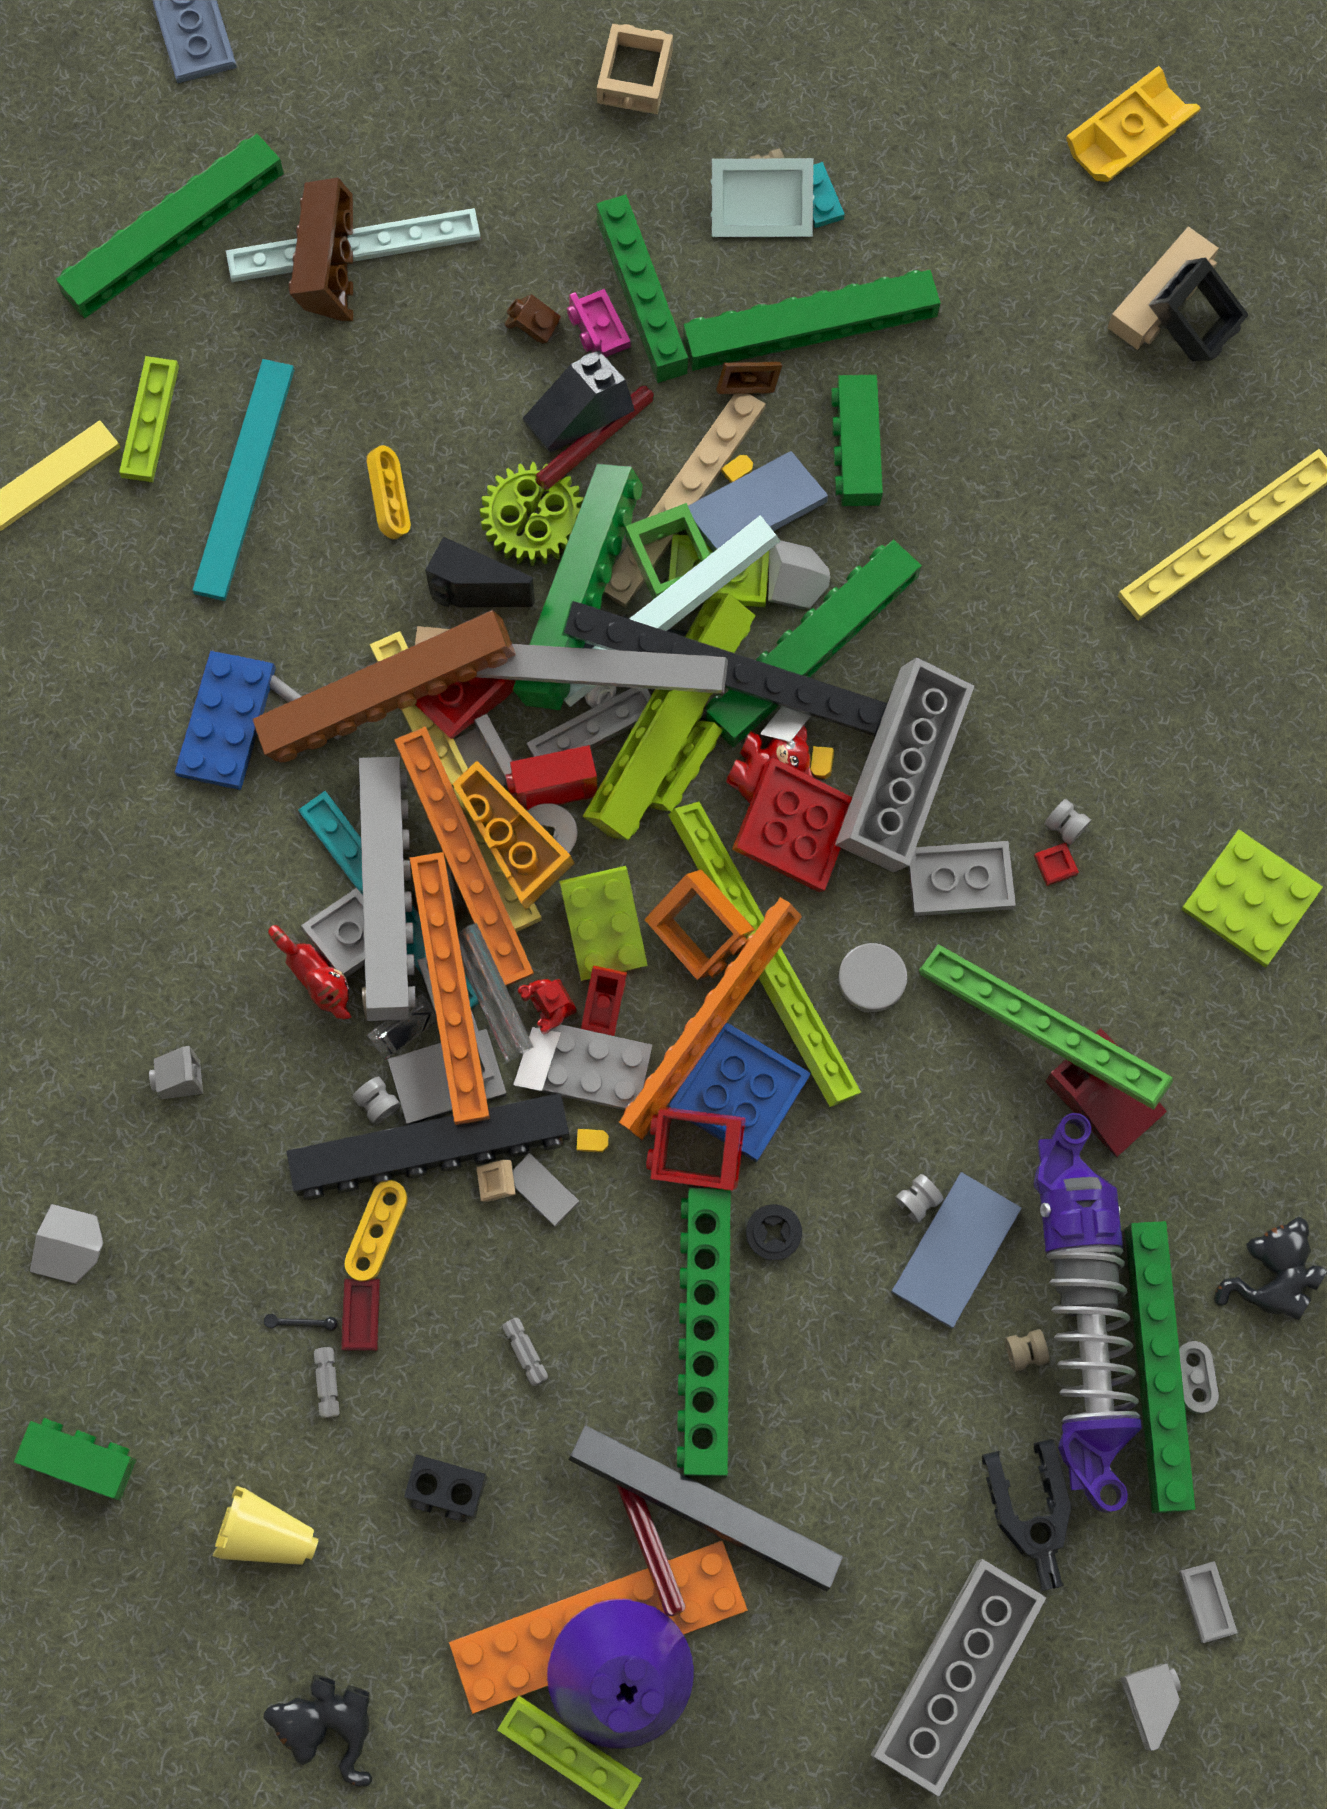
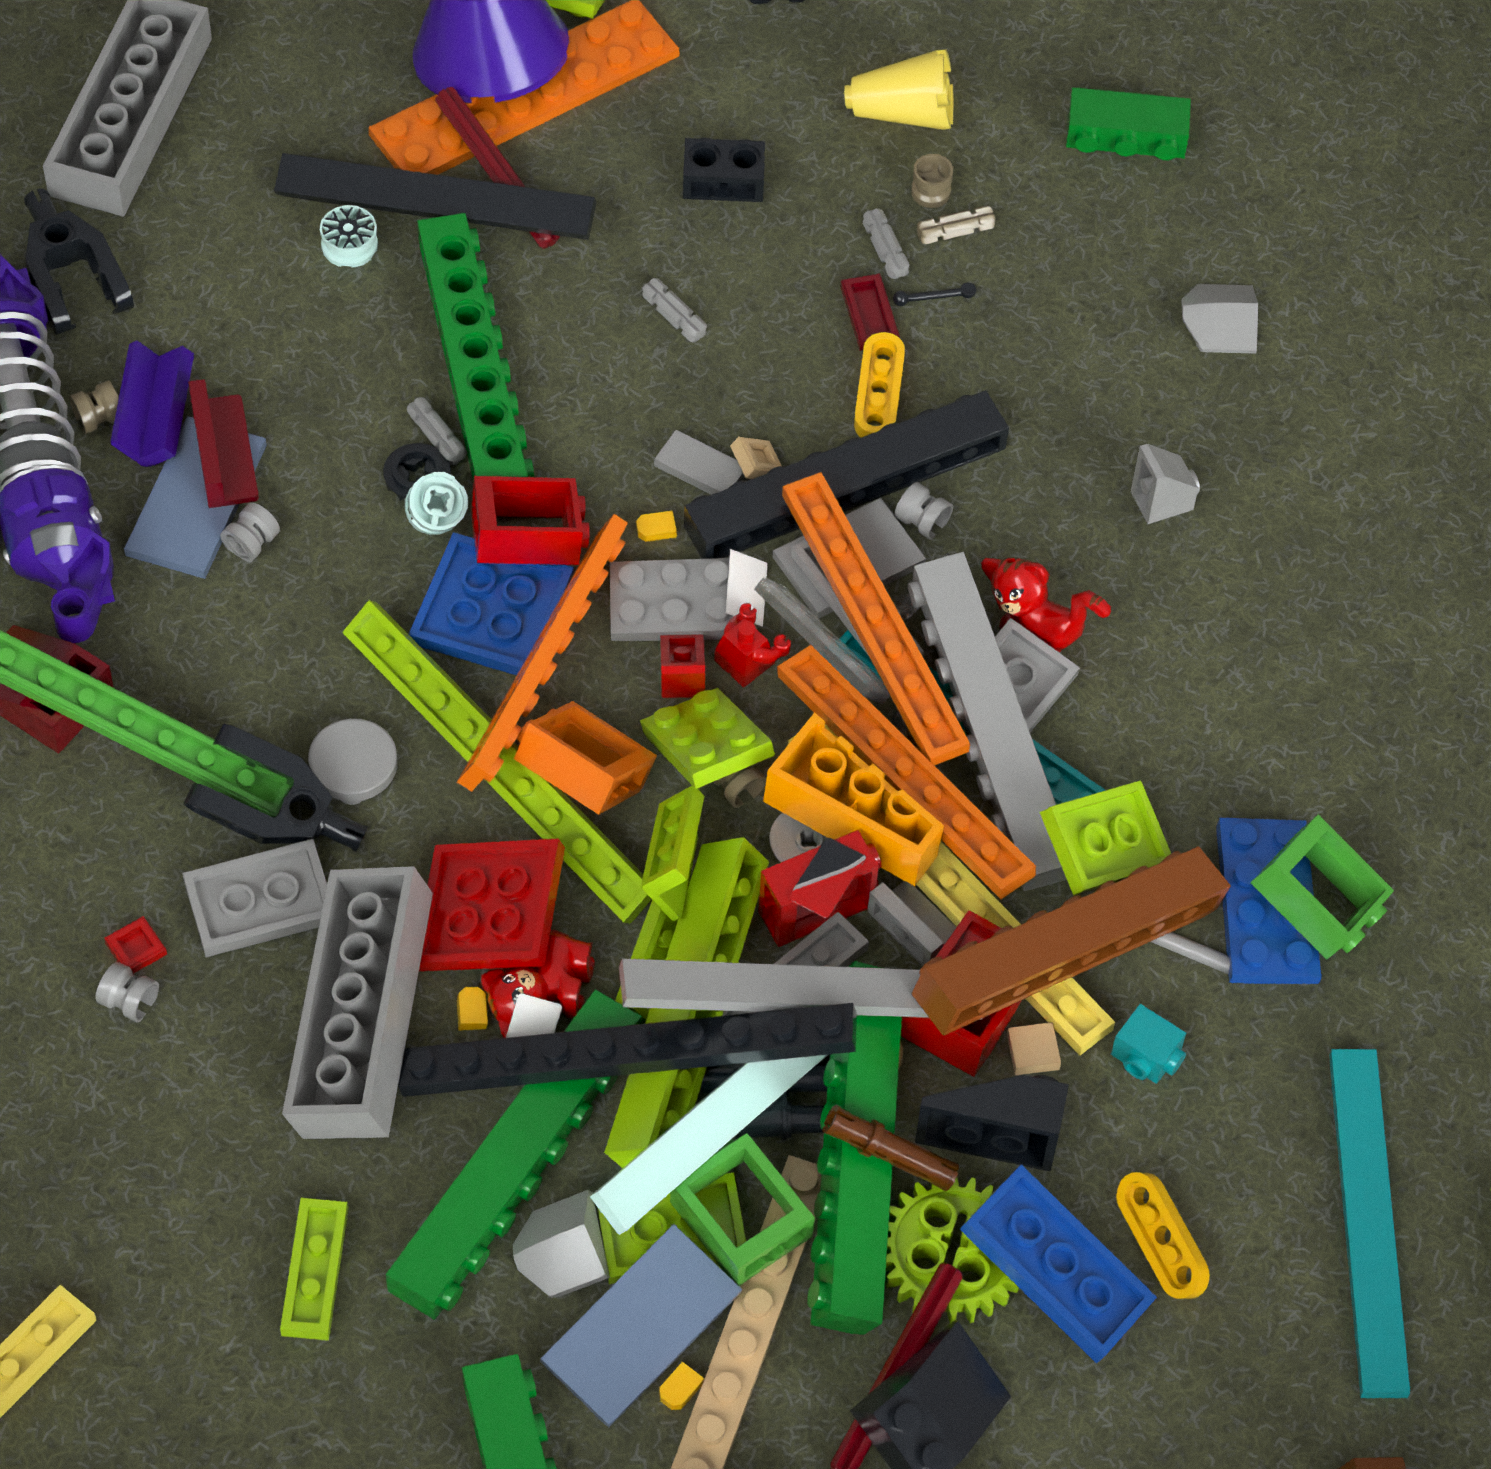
camera: 165 degrees right, 15 degrees down
(201, 720) = (1343, 868): none -> bright green window
(260, 1389) = (955, 224): none -> axle
(265, 1429) = (932, 180): none -> dark tan wheel
(330, 770) = (1105, 836): none -> lime plate
(351, 623) = (1149, 1045): none -> teal brick
(467, 477) = (1058, 1263): none -> blue plate
(550, 759) = (827, 877): none -> sticker
(571, 564) = (874, 1140): none -> reddish brown pin
(653, 826) = (673, 851): none -> lime panel
(750, 1269) = (436, 430): none -> light grey axle
(759, 1196) = (436, 503): none -> light aqua wheel
(787, 1487) = (343, 225): none -> light aqua wheel
(919, 934) = (284, 827): none -> black piece
(929, 1282) = (223, 447): none -> dark red panel
(966, 595) = (314, 1269): none -> lime plate
(980, 1342) = (151, 403): none -> dark purple panel

